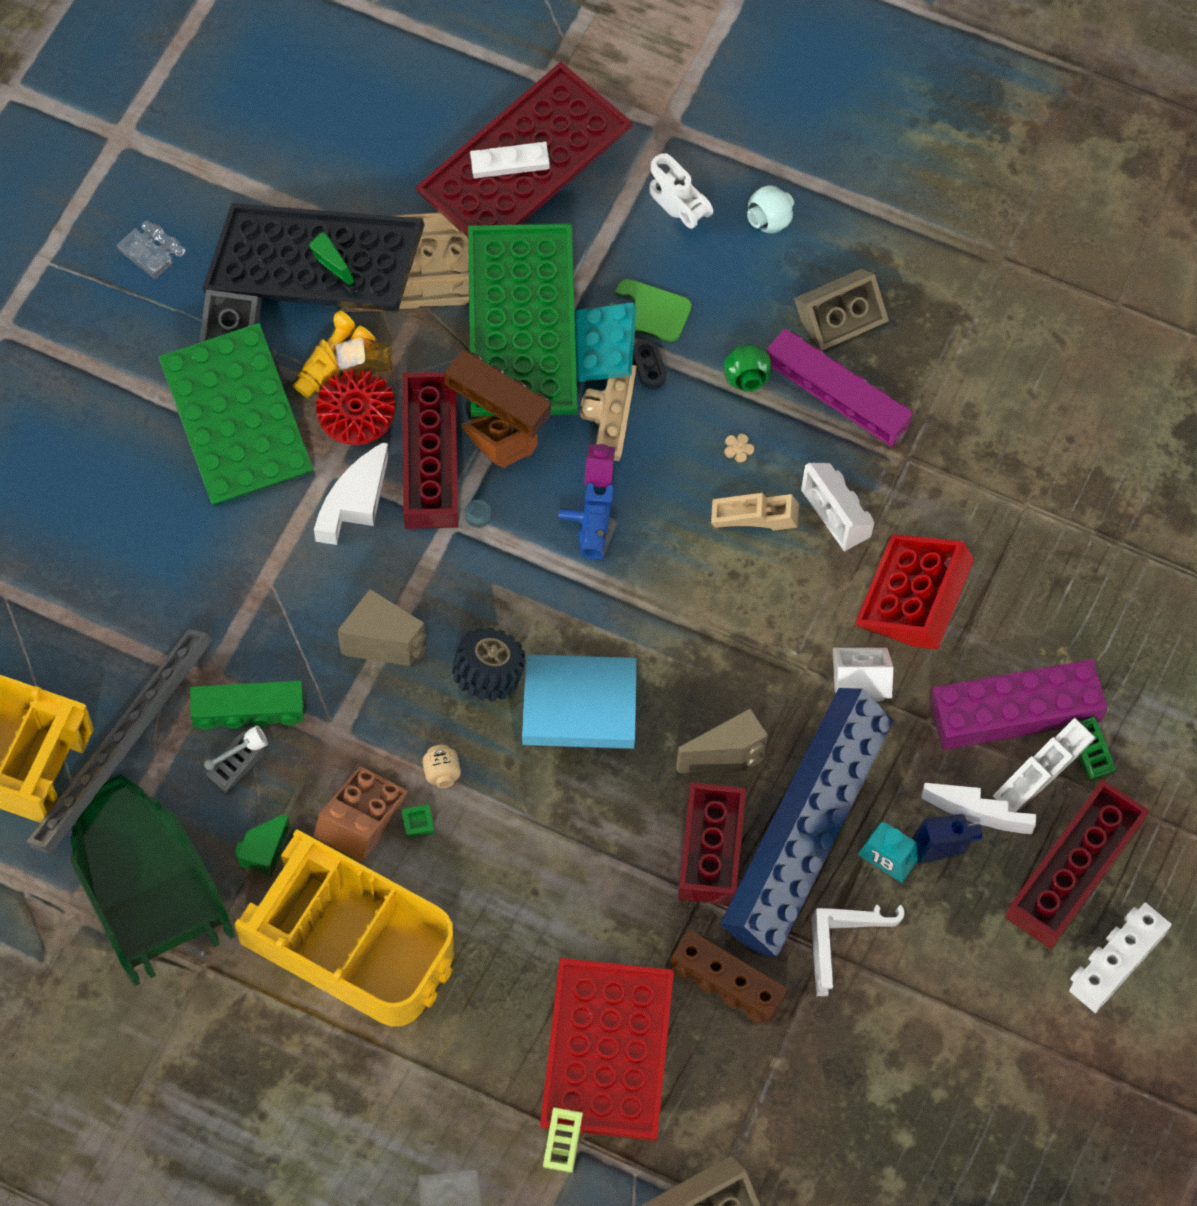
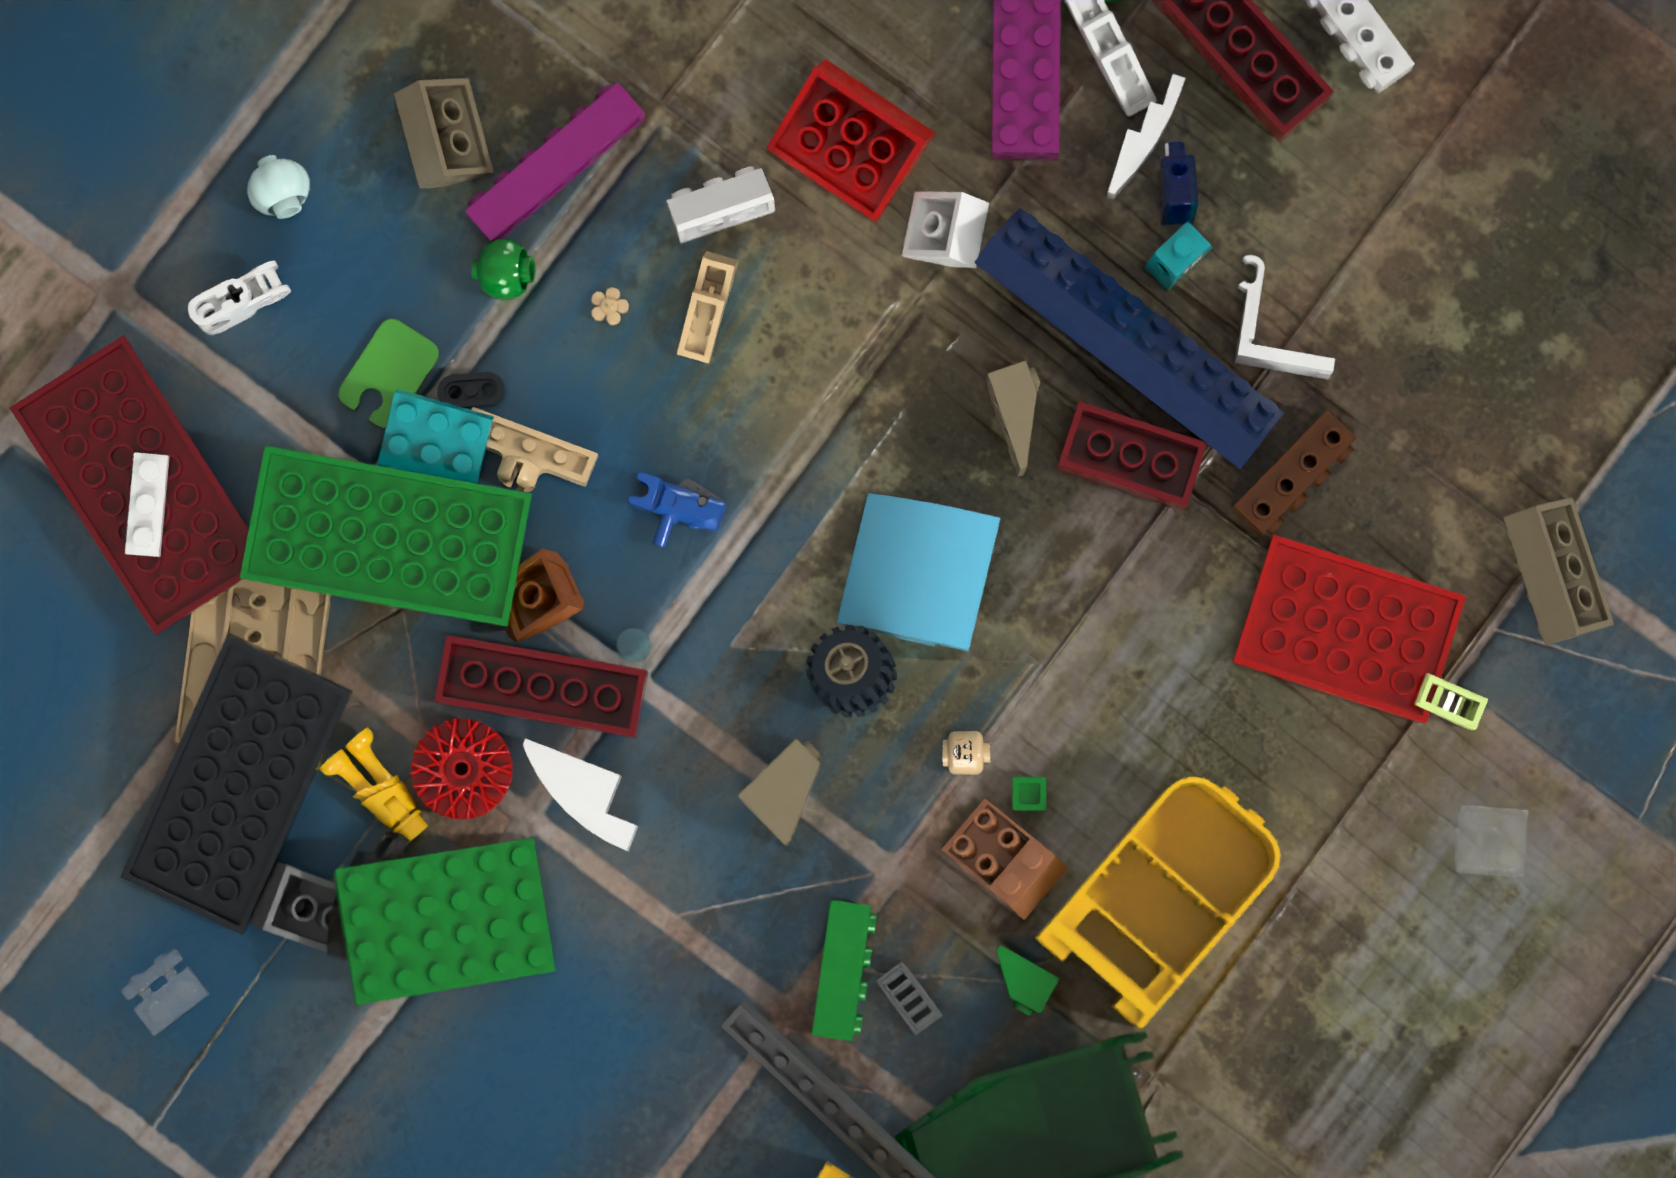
camera: 75 degrees left, 20 degrees up
(253, 740) = (897, 969): hinge -> none
(329, 256) = (247, 765): green slope -> none
(364, 355) = (392, 746): clear yellow slope -> none
(498, 393) = (499, 587): reddish brown brick -> none
(599, 465) = (608, 482): magenta brick -> none

